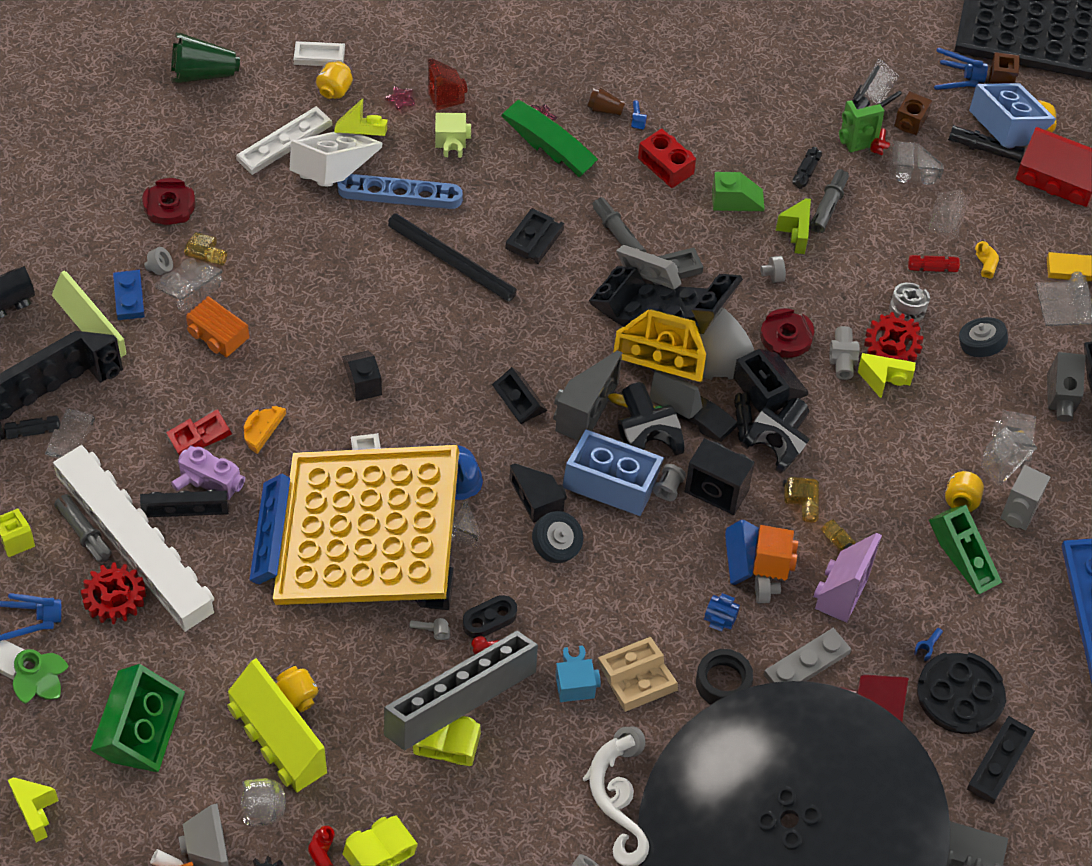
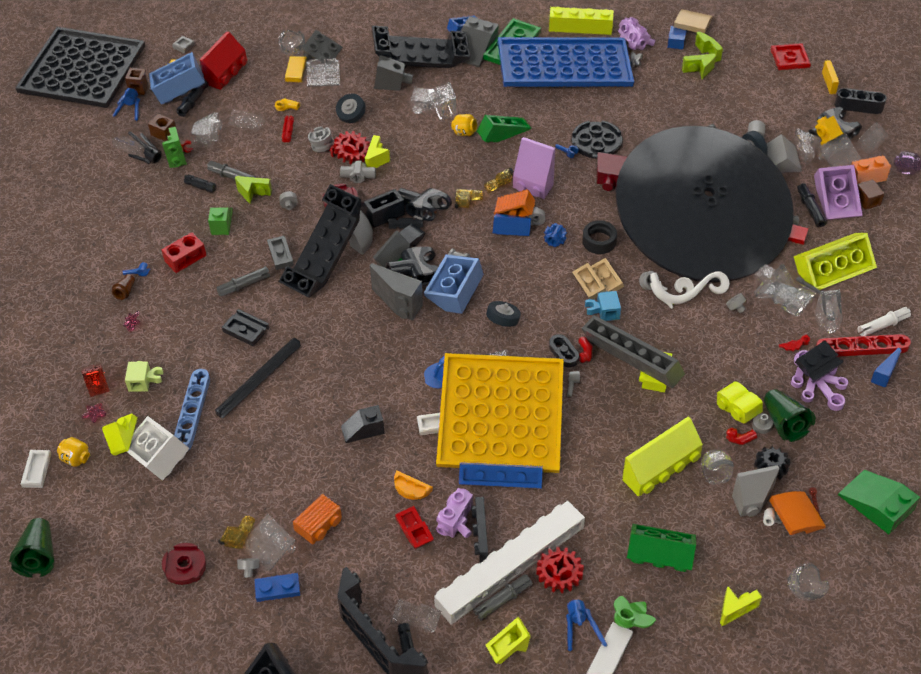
camera: 85 degrees left, 5 degrees down
(83, 310) = (300, 612): yellowish green slope -> none
(279, 142) = (127, 489): white tile -> none
(298, 688) = (624, 449): yellow head -> none
(519, 396) = (385, 338): black slope -> none
(537, 491) = (467, 325): black slope -> none
(548, 135) = (153, 317): green slope -> none
(650, 266) = (289, 256): light grey plate -> none
(663, 344) = (360, 246): yellow wedge -> none
(719, 476) = (460, 227): black brick -> none
(809, 659) = (582, 202): light grey plate -> none
(1000, 760) = (638, 123): black plate -> none
(1025, 497) = (473, 95): light grey brick -> none

